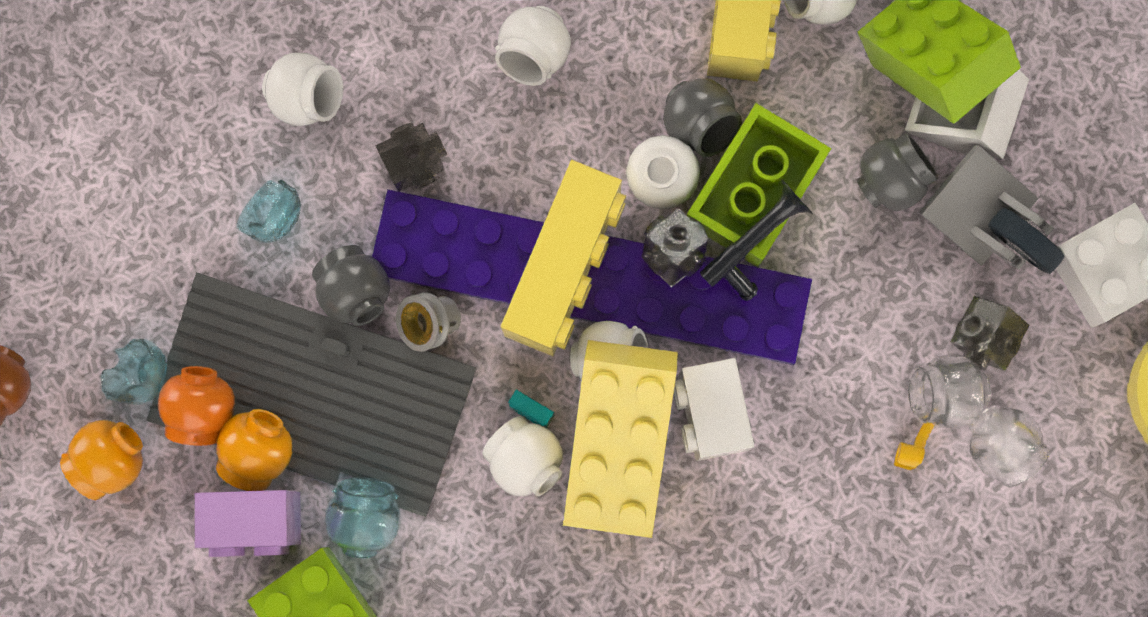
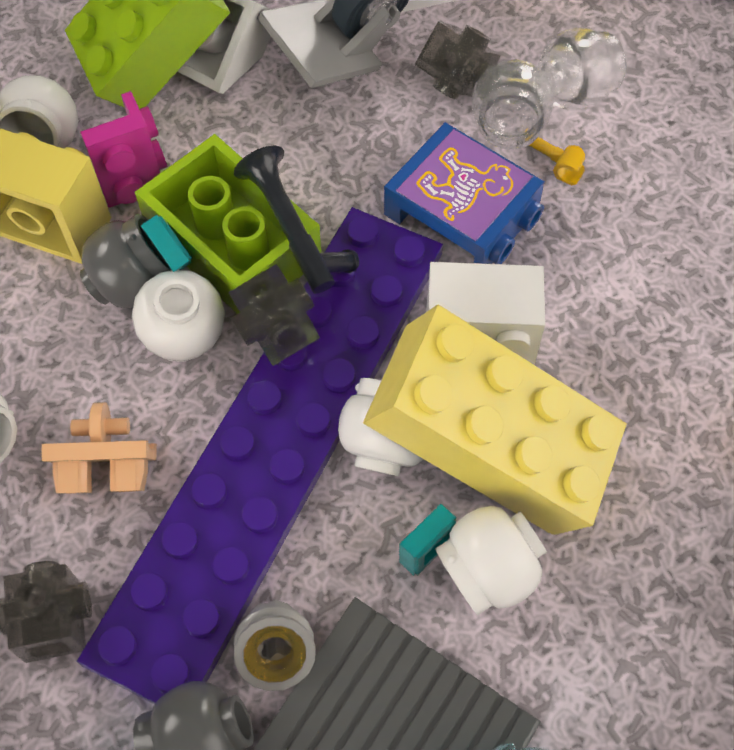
camera: 80 degrees left, 20 degrees down
(545, 150) = (74, 460): none -> light nougat hips
(562, 257) = (250, 431): light yellow brick -> none
(709, 146) = (167, 243): none -> teal tile
(796, 83) = (124, 152): none -> dark pink bracket
(843, 372) = (466, 194): none -> panel
(895, 173) = (261, 97): dark grey piece -> none

